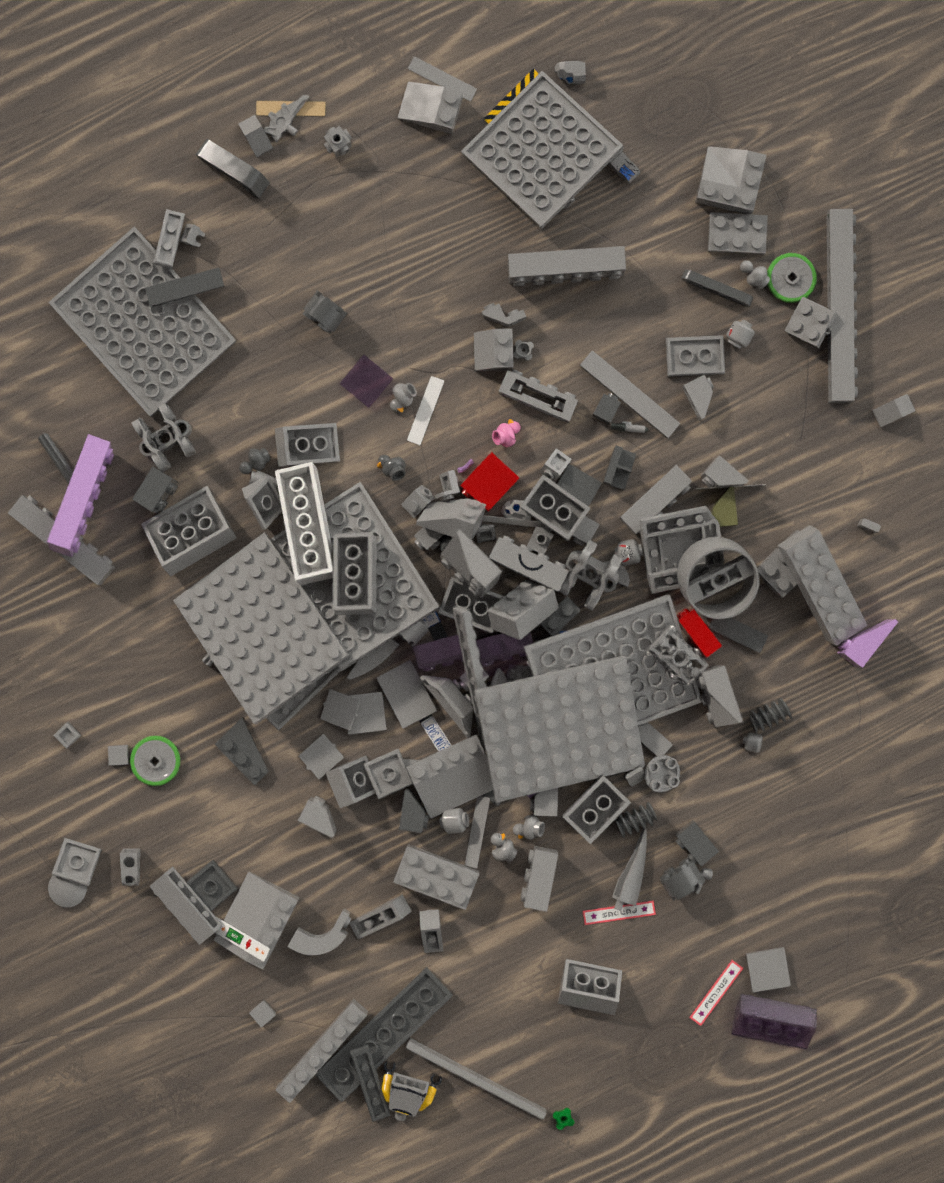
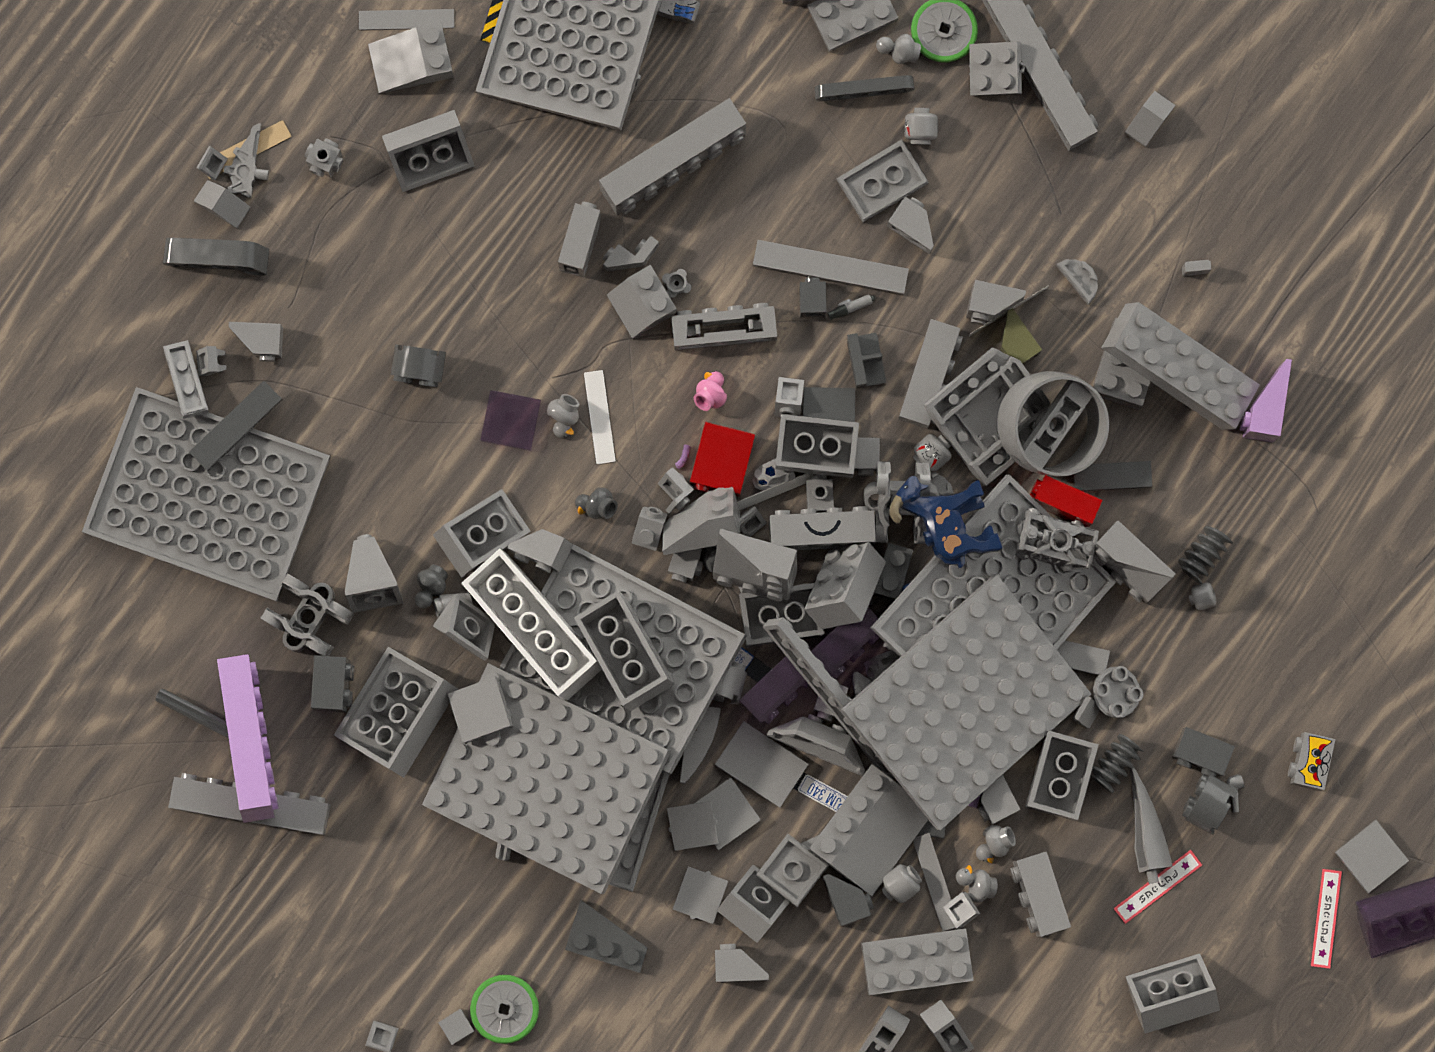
camera: 30 degrees left, 5 degrees down
(218, 434) = (369, 577): none -> light grey slope
(232, 239) = (260, 338): none -> light grey slope
(242, 560) = (480, 710): none -> light grey tile
(263, 105) = (212, 163): none -> light grey slope
(341, 477) = (542, 548): none -> light grey slope
(408, 173) = (428, 150): none -> light grey slope
(475, 286) = (580, 239): none -> light grey brick
(483, 859) = (961, 910): none -> light grey tile
(610, 603) = (944, 521): none -> dark blue animal
(763, 887) = (1311, 761): none -> brick
(790, 490) = (1080, 277): none -> light grey tile

